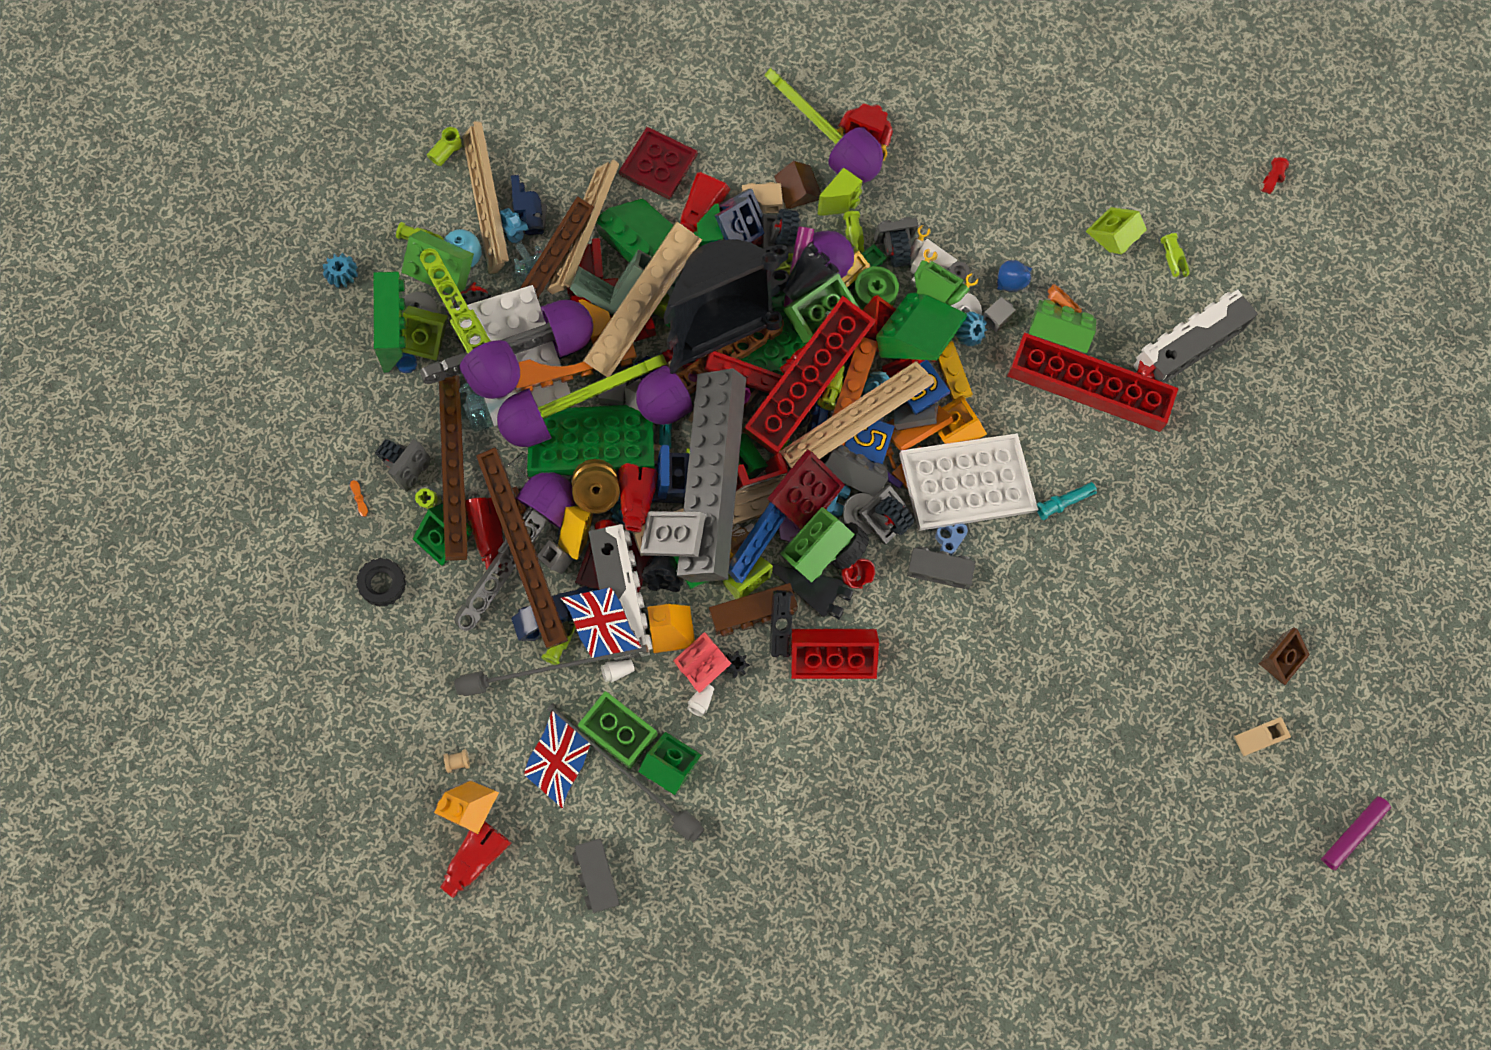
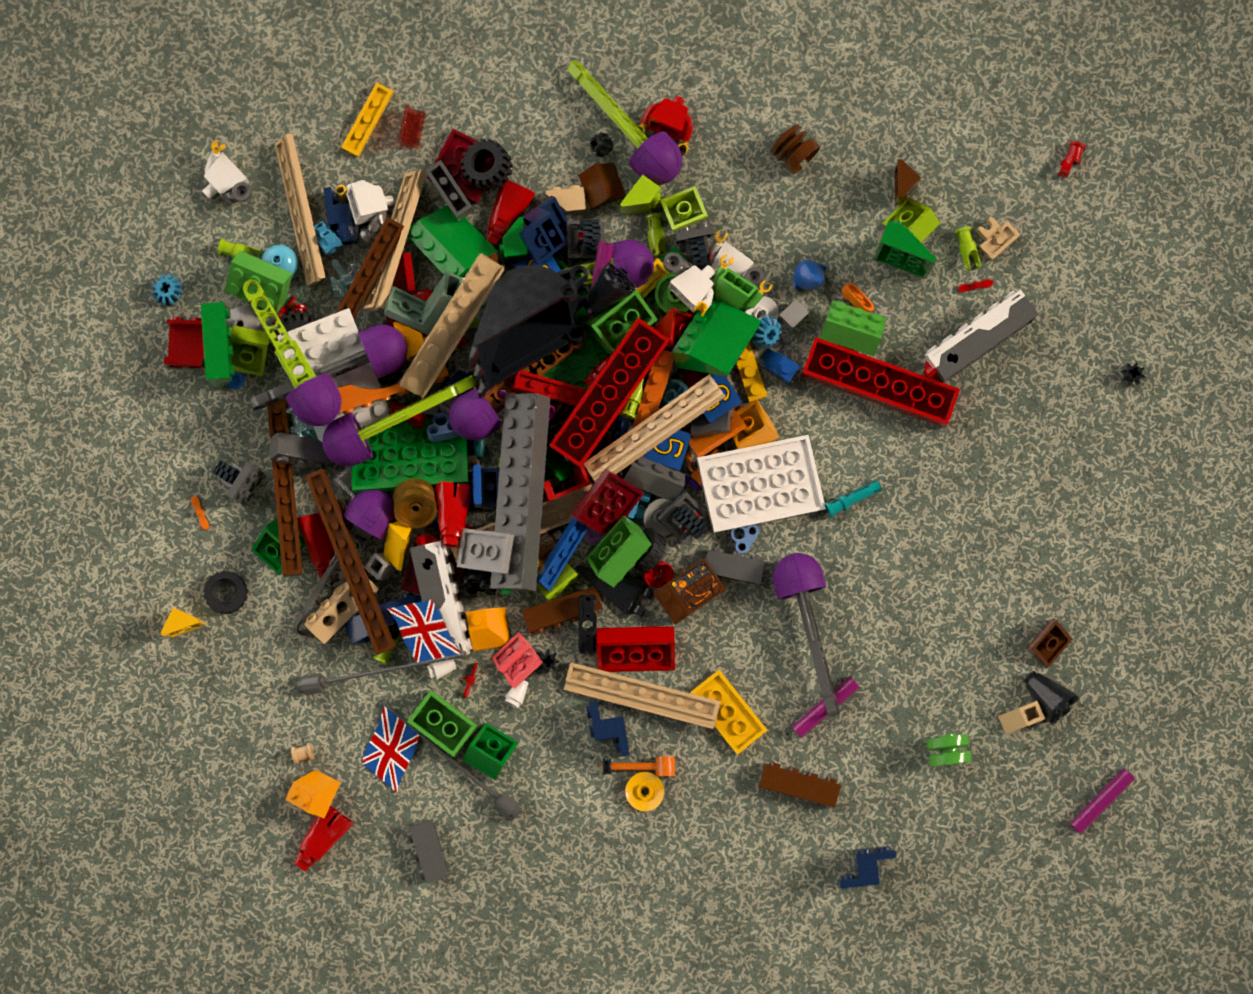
camera: 10 degrees right, 10 degrees up
(327, 612) = (179, 623): none -> yellow slope
(355, 324) = (185, 343): none -> red panel
(408, 163) = (225, 177): none -> white torso
(422, 495) = (257, 517): lime piece -> none
(444, 147) = (257, 159): lime piece -> none
(470, 431) = (298, 451): none -> dark grey brick
(504, 611) = (338, 617): none -> tan brick
(555, 194) = (367, 205): none -> white torso
(559, 116) = (367, 120): none -> yellow plate
(591, 402) = (416, 421): none -> red connector
(604, 125) = (411, 127): none -> clear red panel
(626, 414) = (443, 432): none -> medium blue piece
(642, 180) = (449, 190): none -> dark grey brick
(649, 685) = (470, 680): none -> red piece
(675, 145) = (481, 152): none -> black tyre
(798, 146) = (601, 144): none -> black gear
(804, 739) = (608, 728): none -> dark blue bracket
(841, 703) = (642, 695): none -> tan plate
(856, 811) = (635, 796): none -> yellow dish
(865, 783) = (663, 766): none -> orange piece
(883, 205) = (684, 208): none -> lime slope
(893, 273) = (691, 284): none -> white torso
(894, 591) = (689, 591): none -> reddish brown slope
(936, 725) = (734, 718): none -> yellow plate
(985, 364) = (778, 365): none -> blue slope
(997, 153) = (791, 145): none -> reddish brown wheel
(1013, 578) = (798, 576): none -> piece
(1019, 808) = (800, 785): none -> reddish brown brick
(1044, 721) = (819, 712): none -> magenta piece
(1099, 902) = (866, 867): none -> dark blue bracket
(1109, 187) = (905, 181): none -> reddish brown slope
(1117, 248) = (904, 251): none -> green slope
(1184, 766) = (948, 749): none -> bright green wheel
(1196, 291) = (975, 285): none -> red piece
(1203, 247) = (996, 238): none -> tan plate
(1297, 714) = (1051, 696): none -> black cone
(1353, 382) = (1128, 376): none -> black gear

